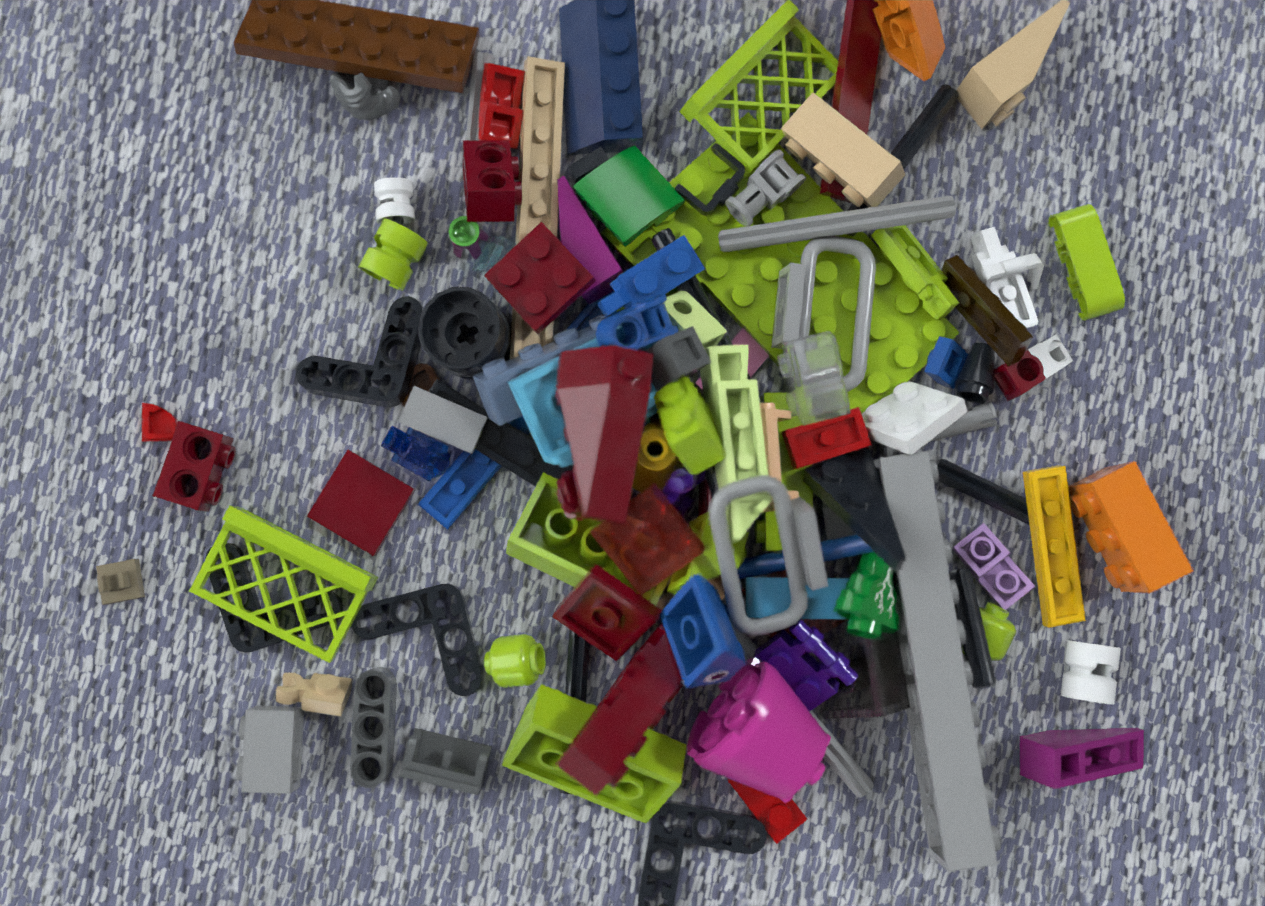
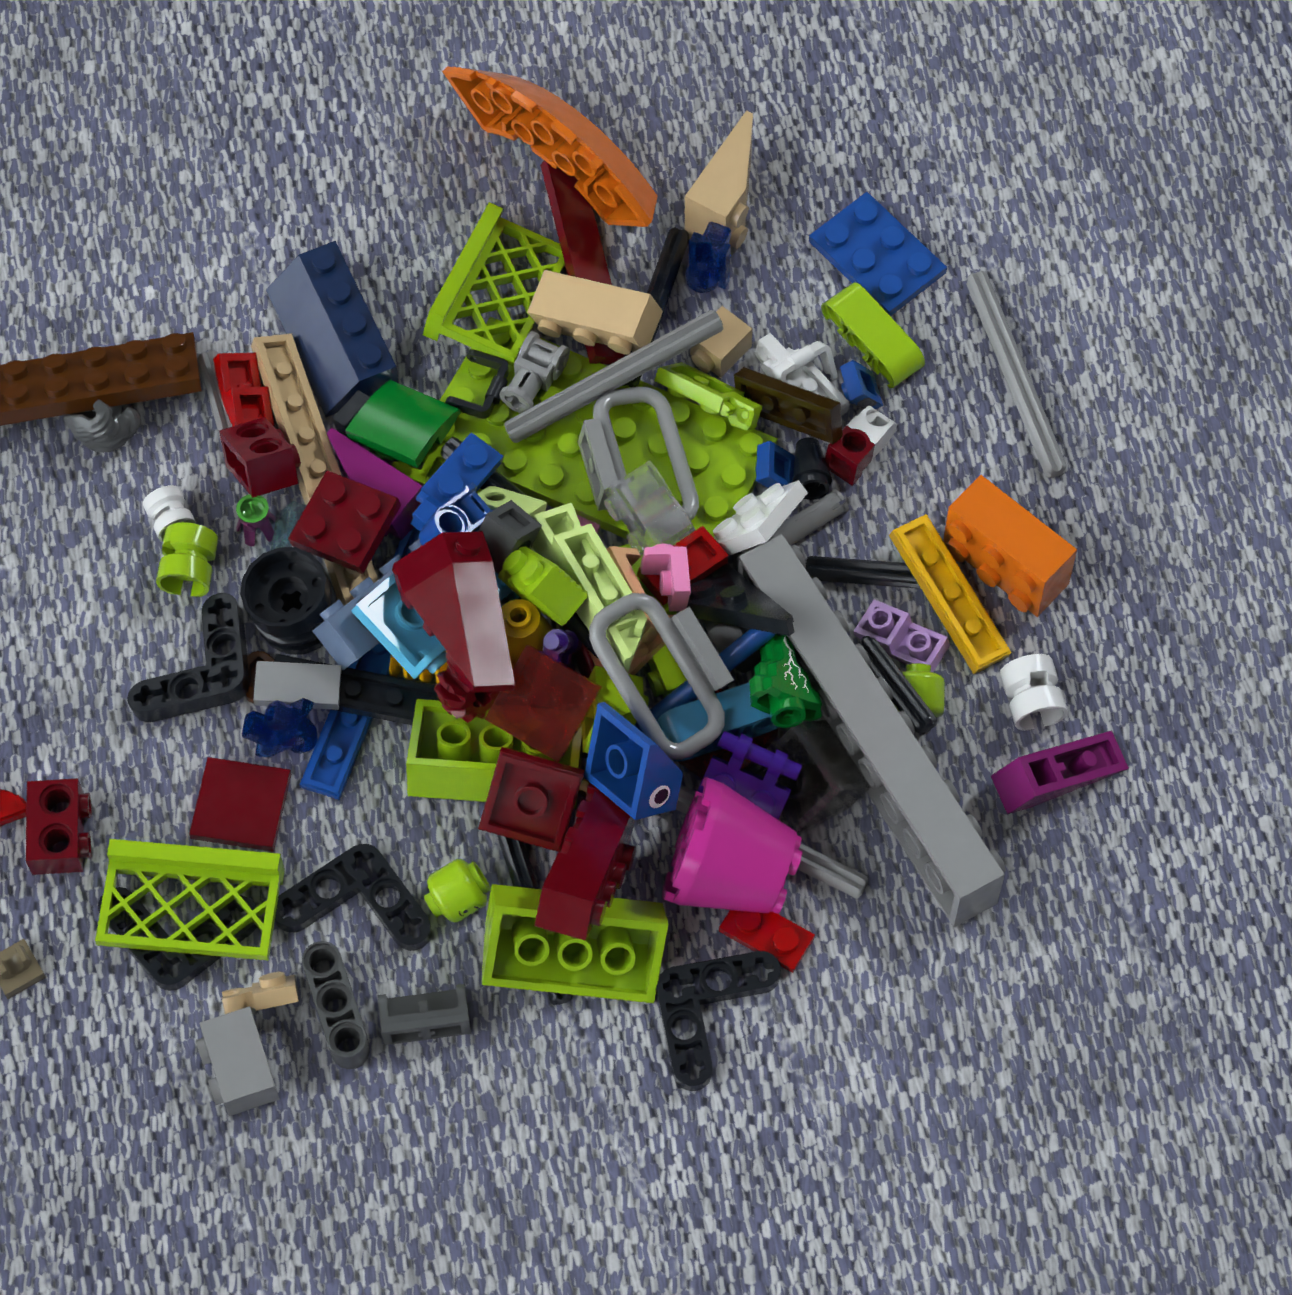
camera: 20 degrees left, 20 degrees down
(813, 461) = (673, 569): none -> bright pink bracket
(943, 230) = (724, 348): none -> tan brick
(968, 134) = (709, 259): none -> clear blue hips
(1054, 310) = (860, 385): none -> blue plate
(1122, 178) = (877, 253): none -> blue plate
(1199, 348) = (1016, 374): none -> light grey axle

